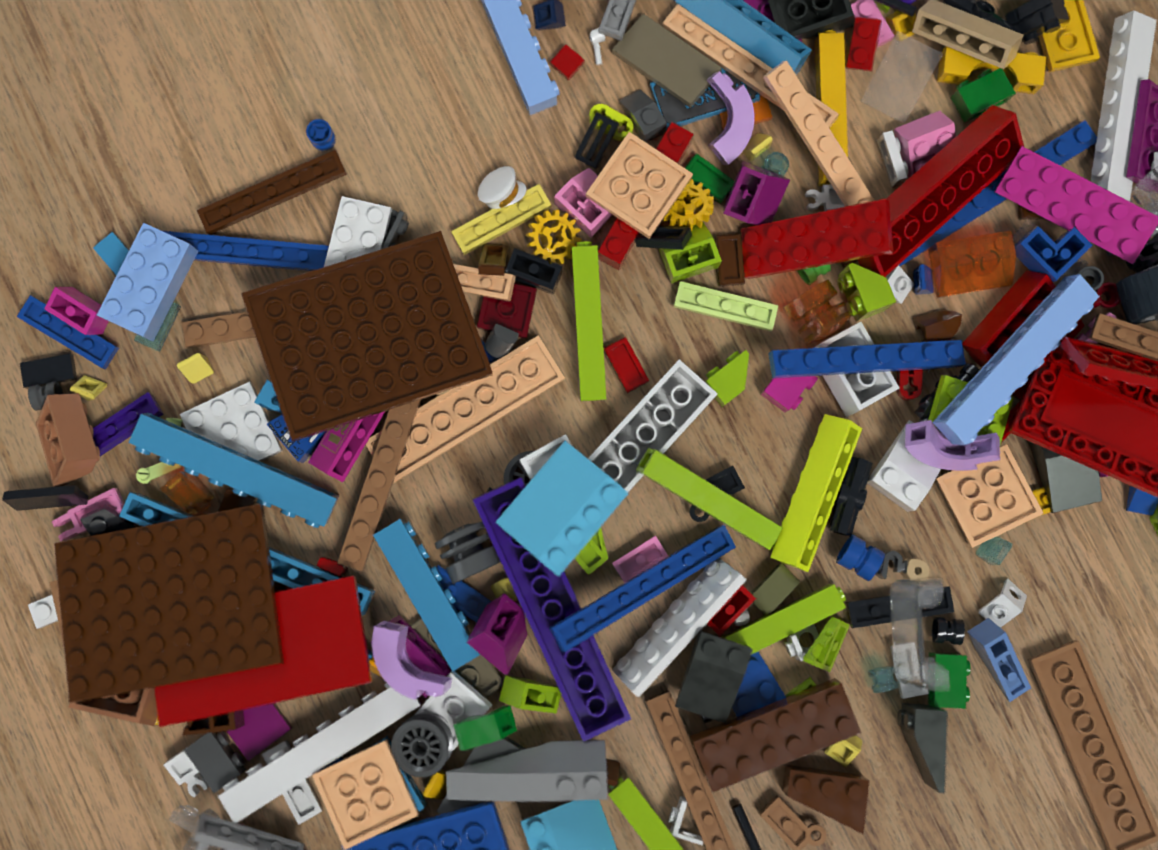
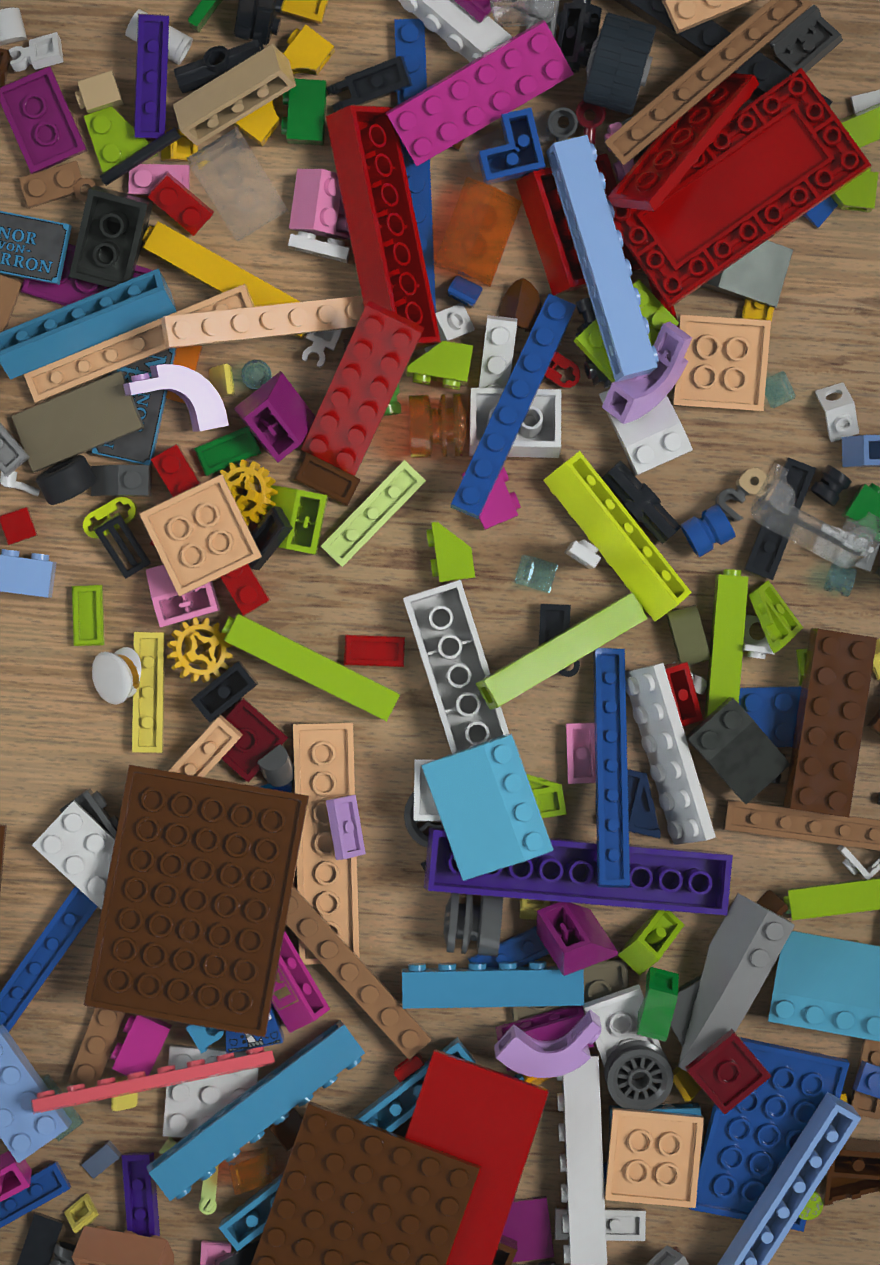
camera: 55 degrees left, 5 degrees up
(138, 380) = (101, 1159): none -> sand blue piece
(207, 369) = (140, 1082): none -> coral plate
(236, 360) = (141, 1045): none -> dark pink brick
(464, 813) = (728, 1071): none -> dark red plate
(485, 415) = (345, 827): none -> lavender plate
(493, 260) = (188, 726): reddish brown tile -> none
(532, 147) = (88, 615): none -> lime tile
(620, 74) = (66, 480): none -> black tyre
(627, 627) = (641, 805): none -> dark blue wing
(752, 450) = (536, 573): none -> clear light blue slope
(791, 472) = (583, 553): none -> white plate
(899, 326) = (497, 351): none -> white plate
(1036, 129) = (372, 83): none -> black hinge

